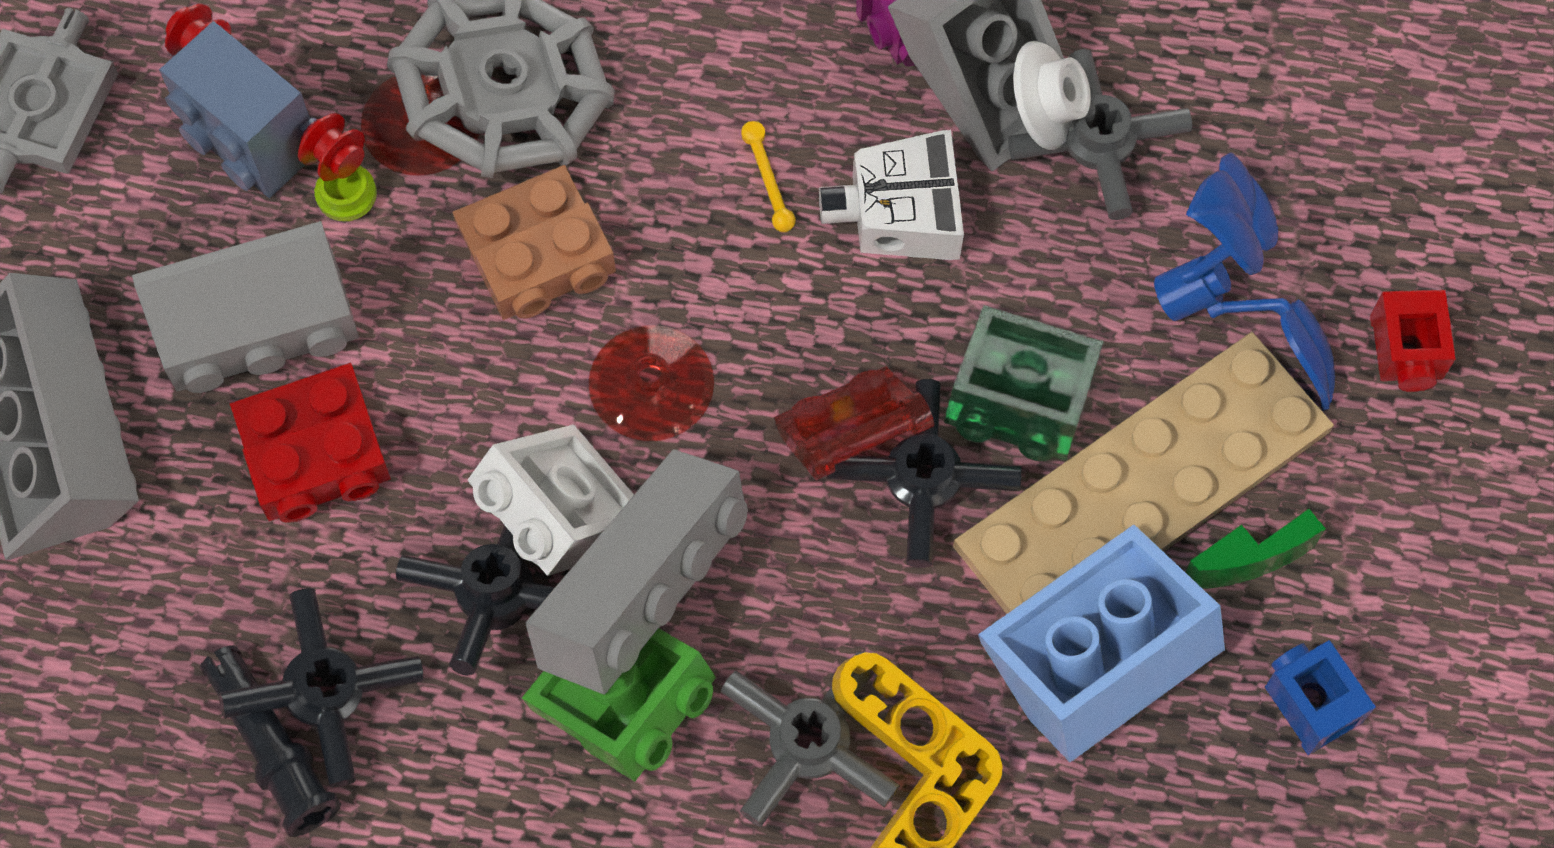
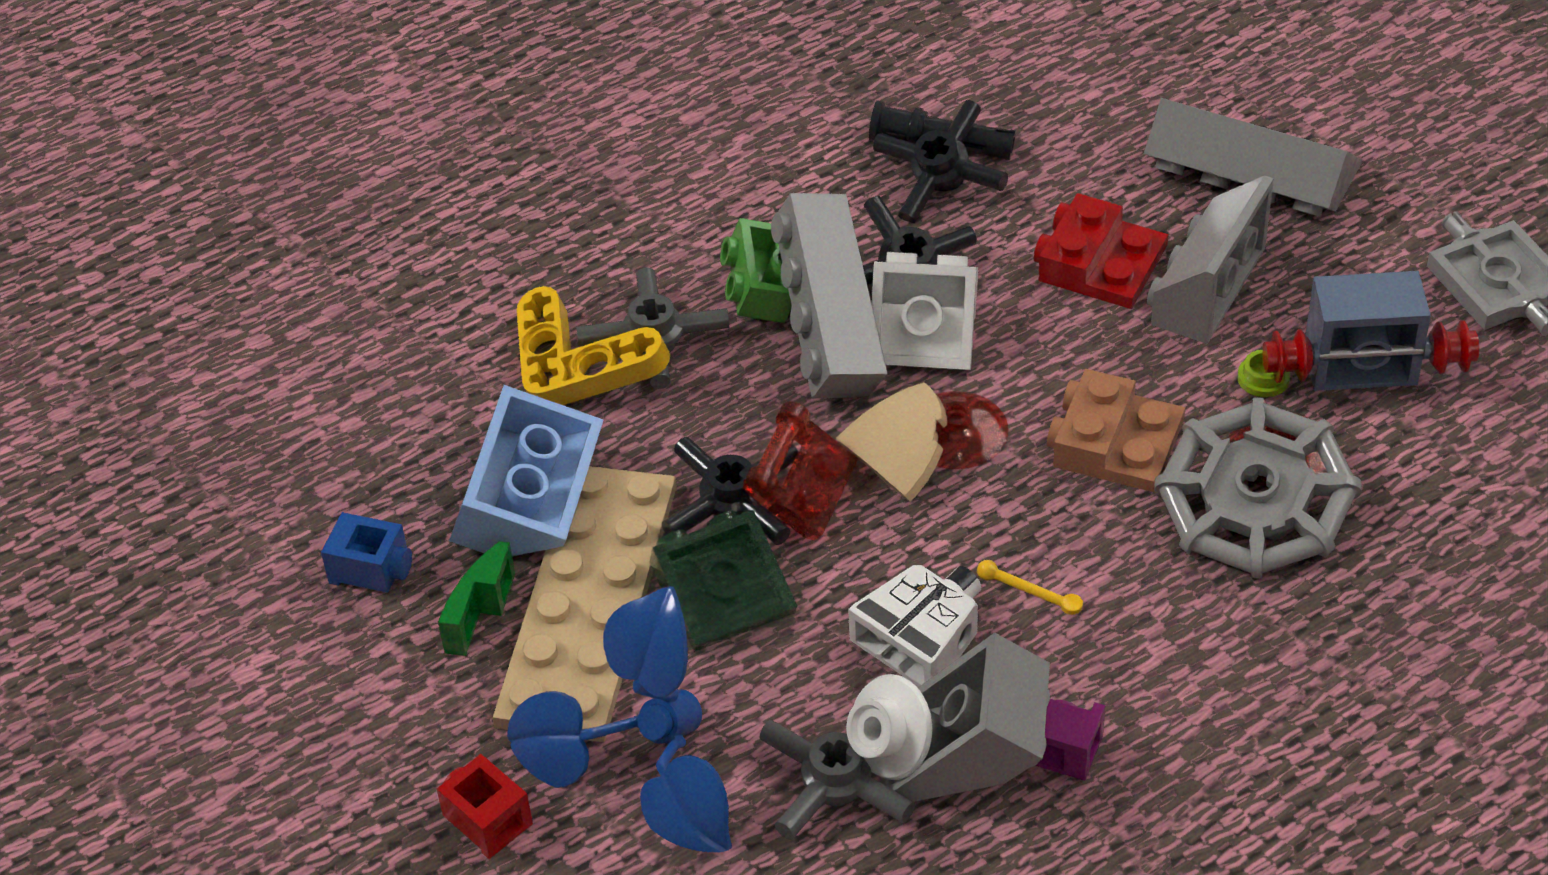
camera: 140 degrees right, 20 degrees down
(723, 391) = (899, 438): none -> tan brick

